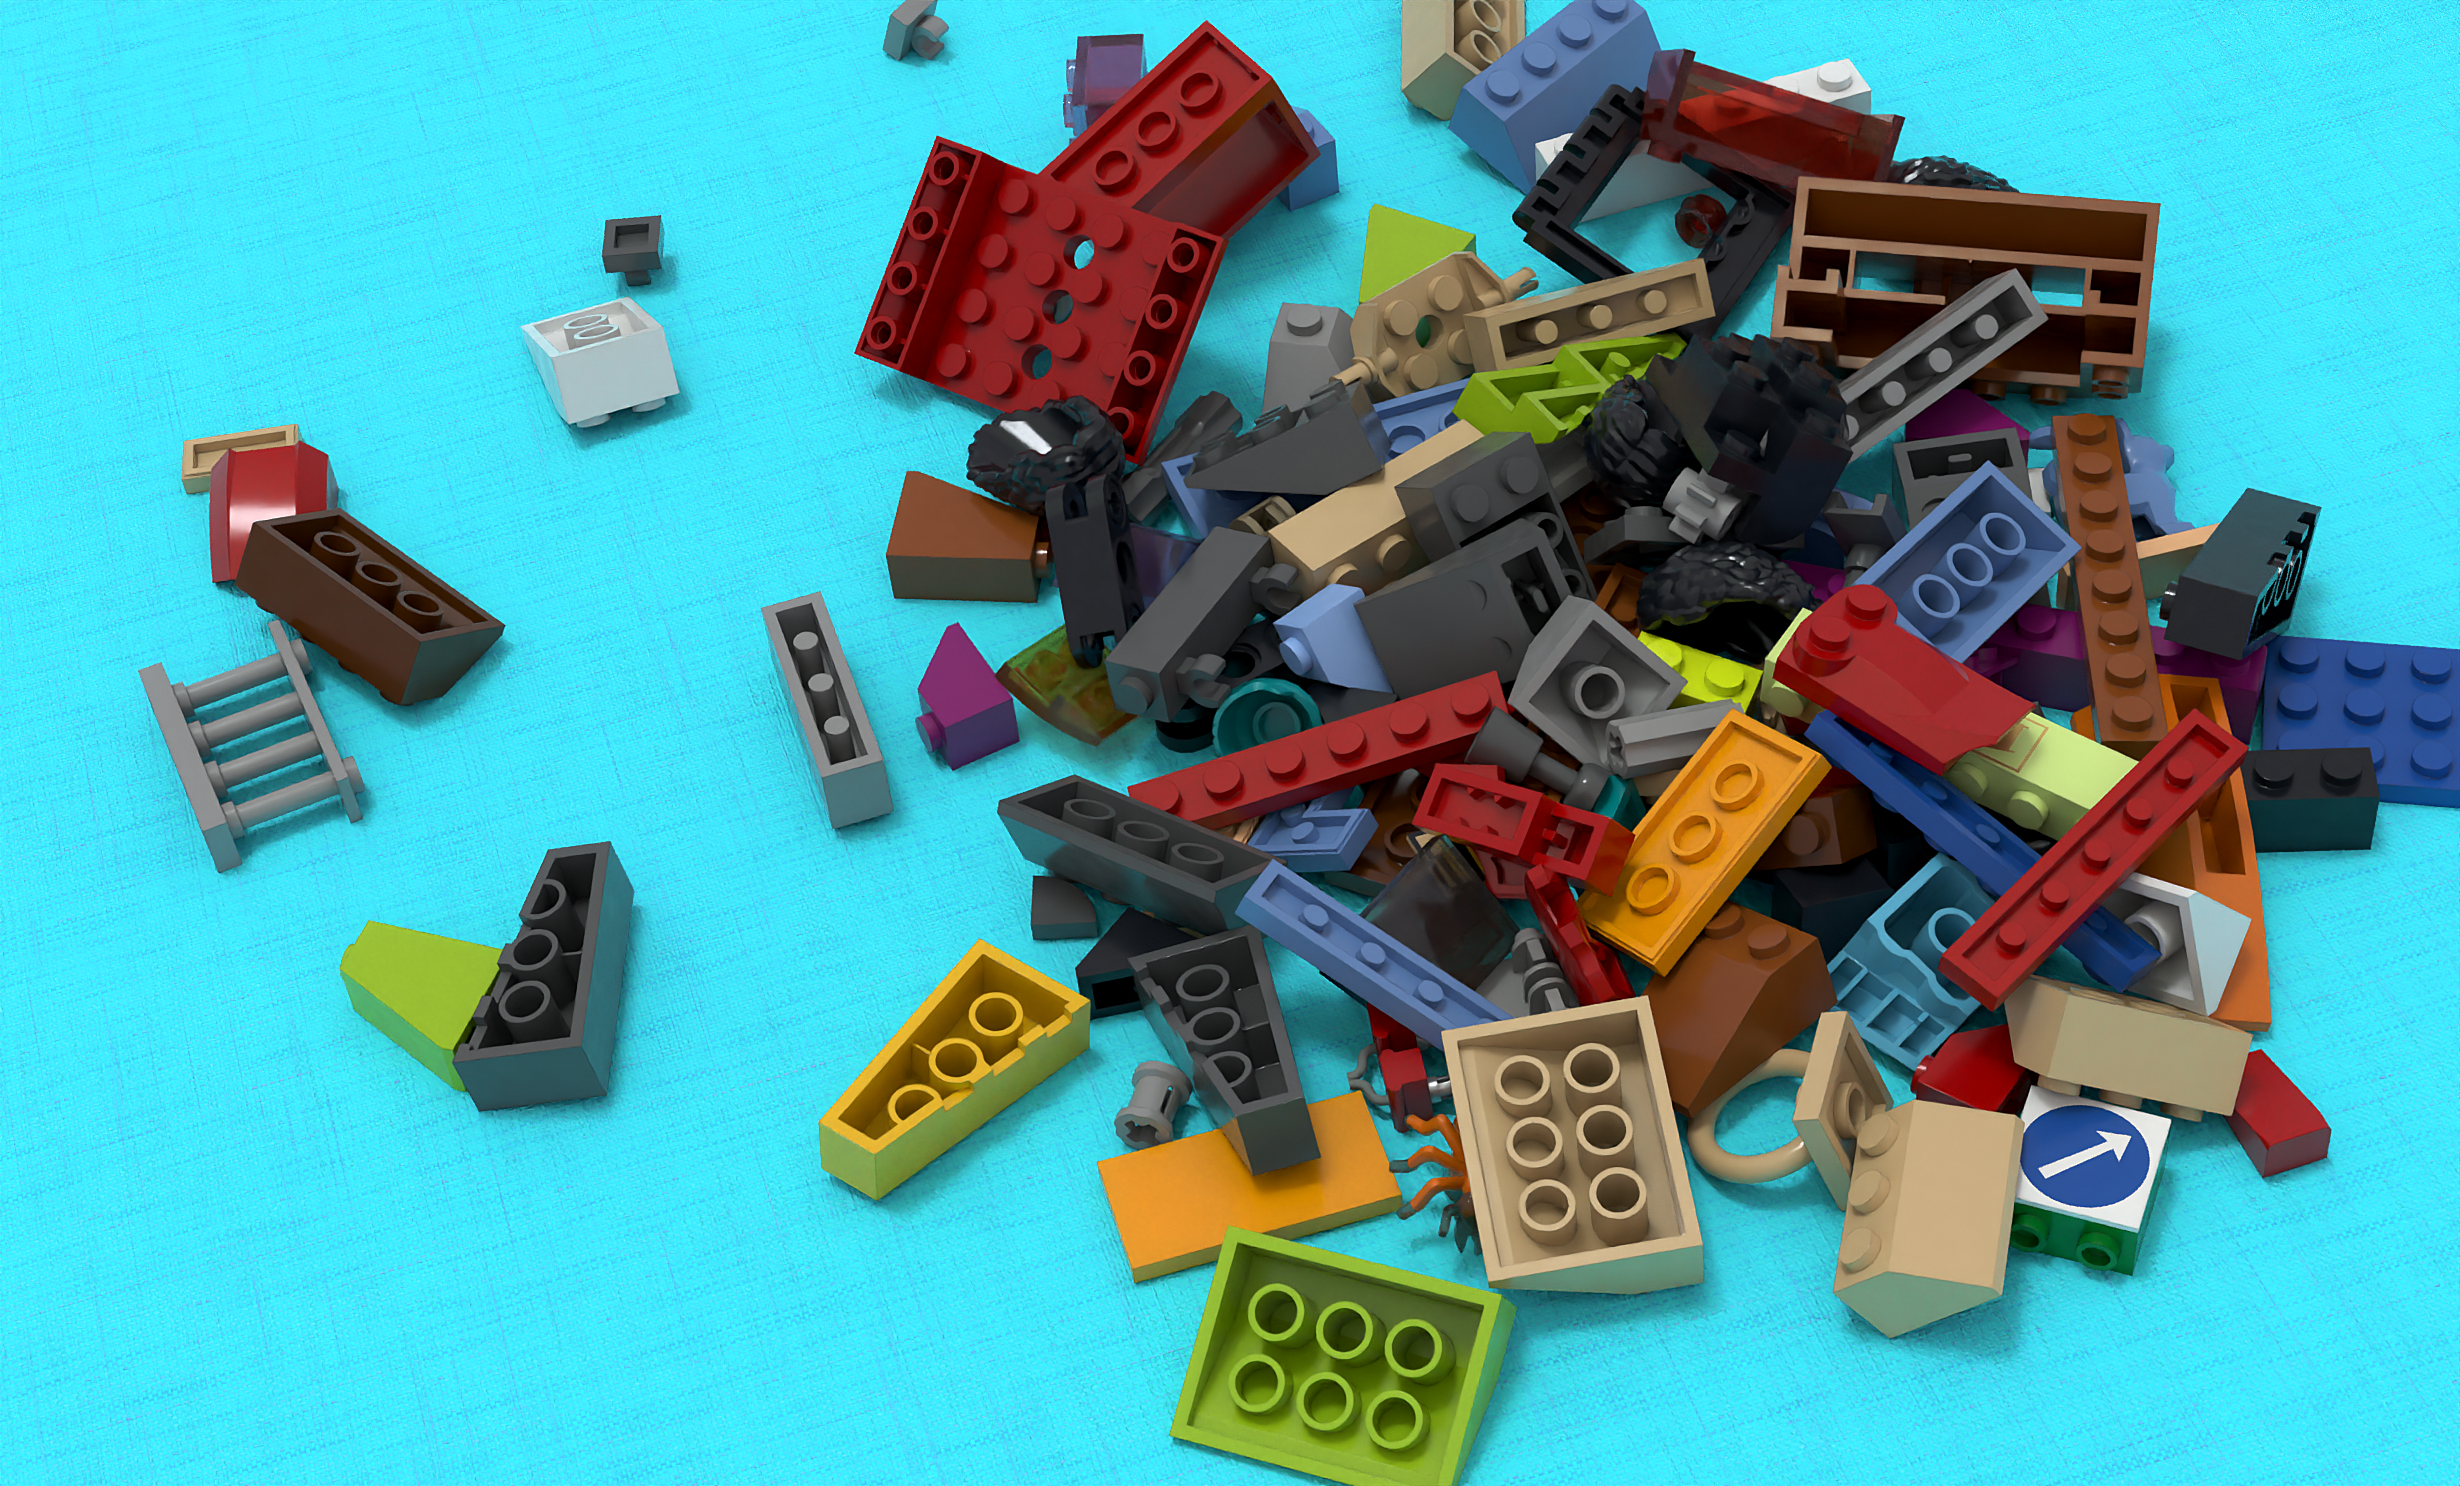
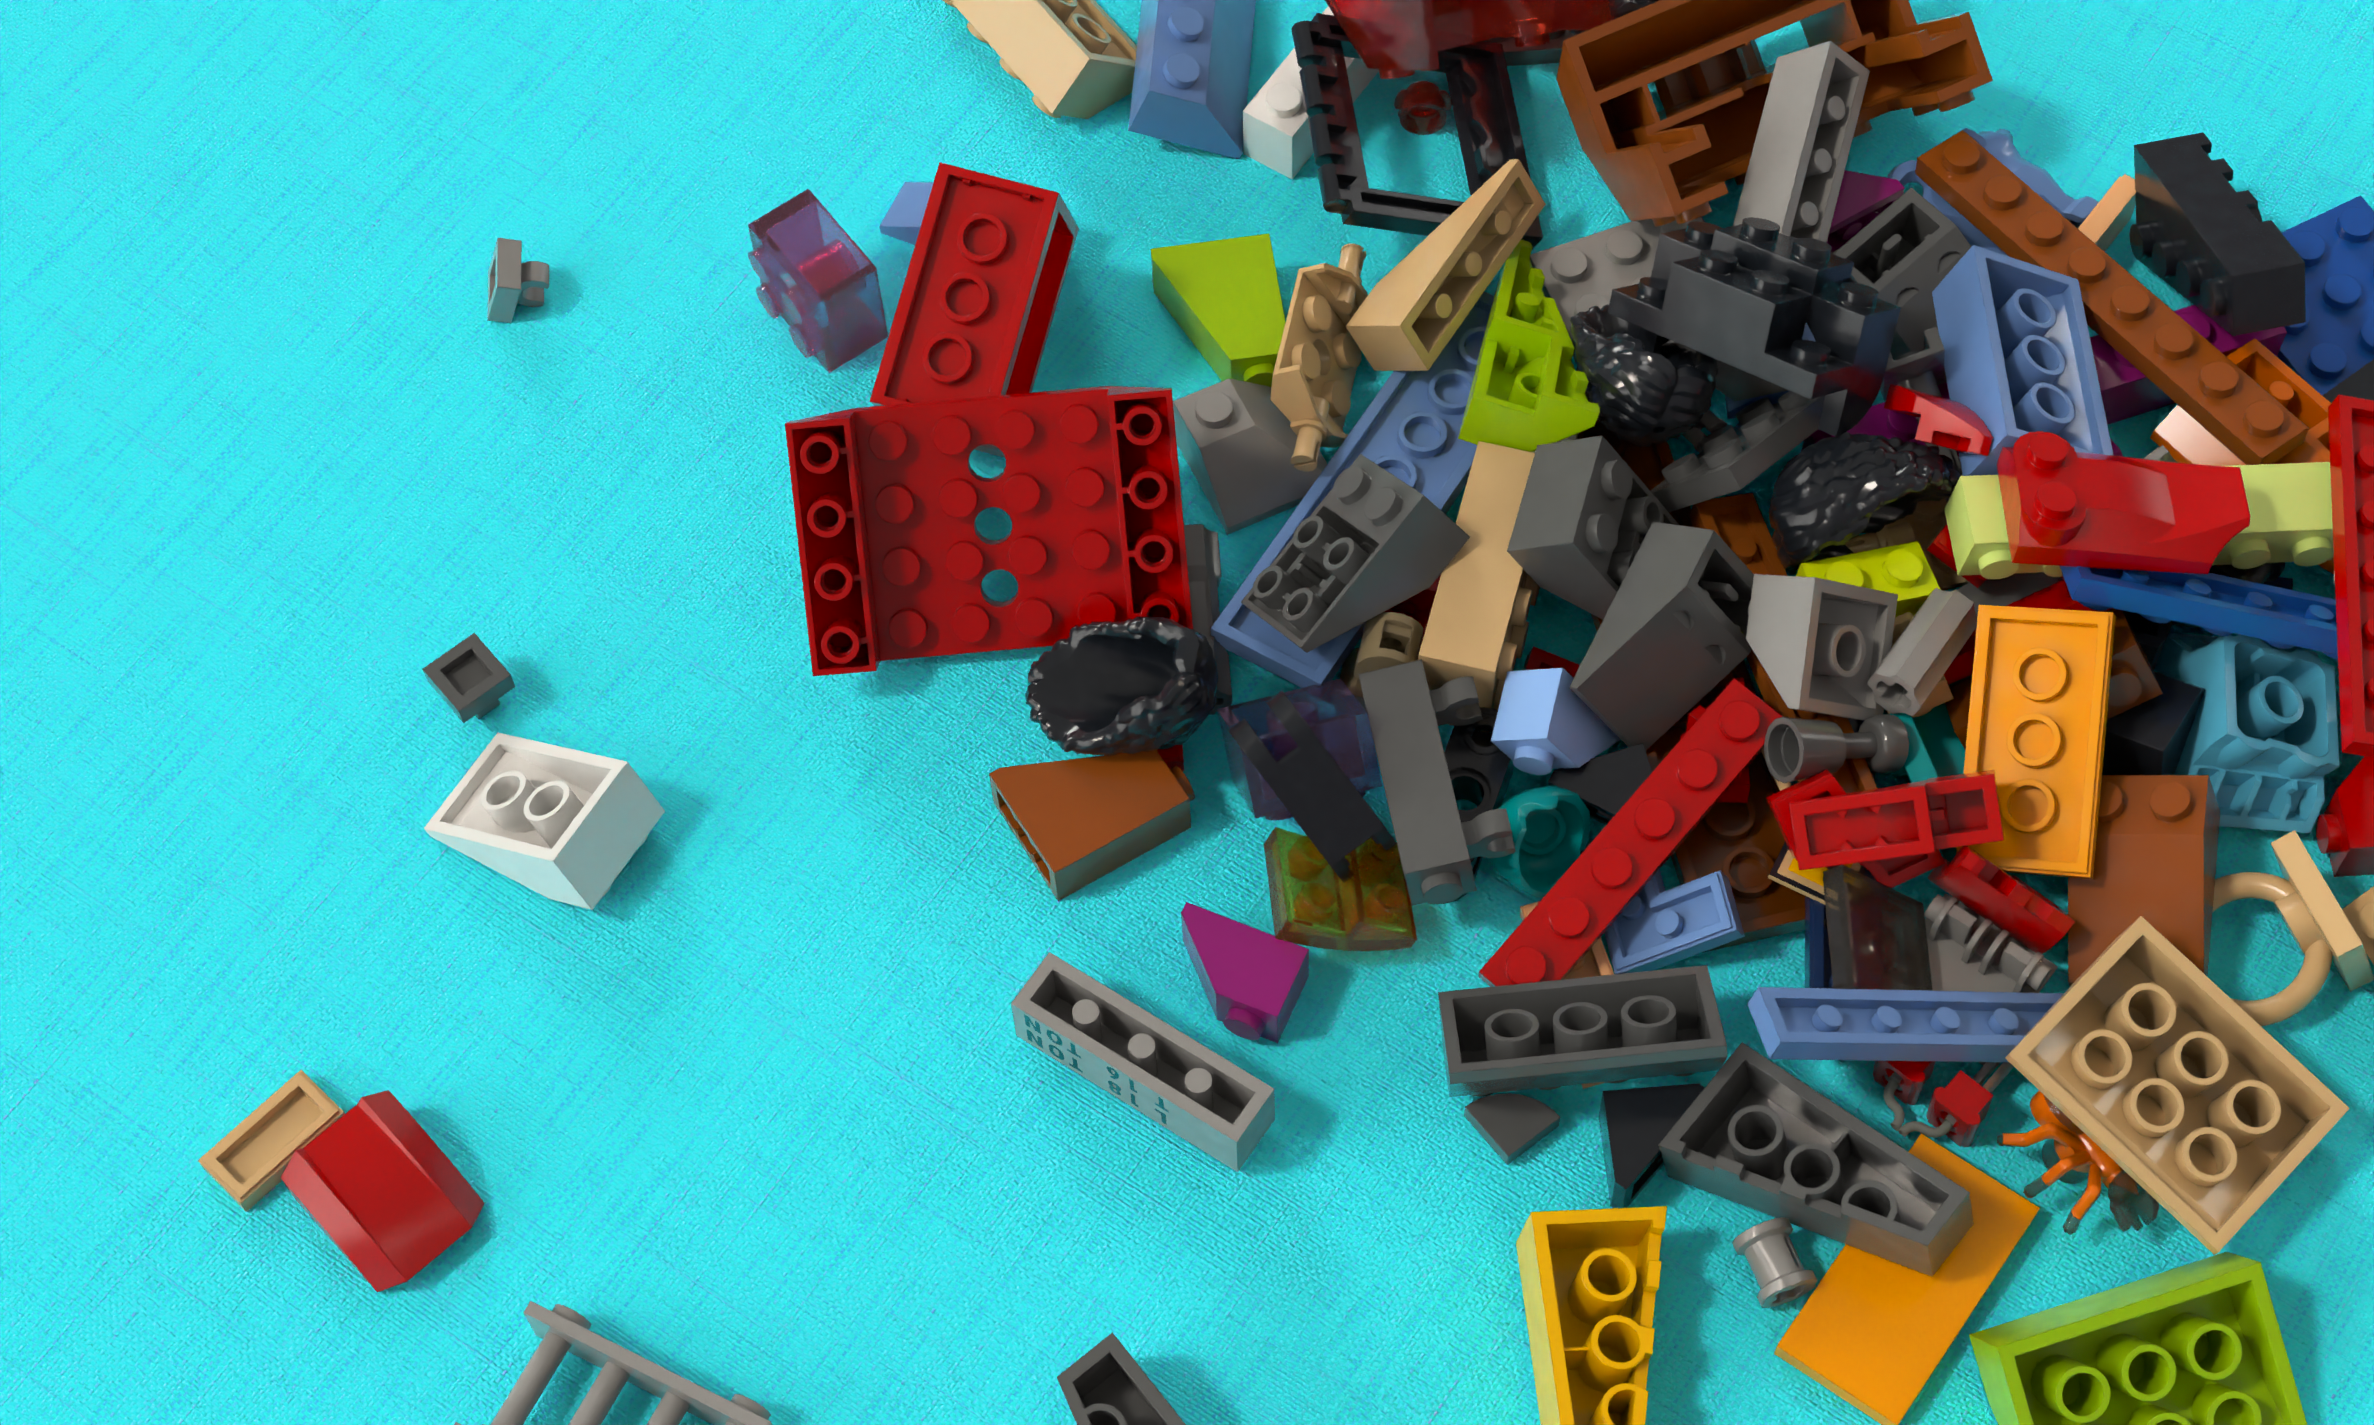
camera: 40 degrees left, 15 degrees up
(365, 603) = (591, 1226): reddish brown slope -> none
(1701, 506) = (1791, 424): light grey gear -> none
(1829, 564) = (1941, 420): none -> red slope

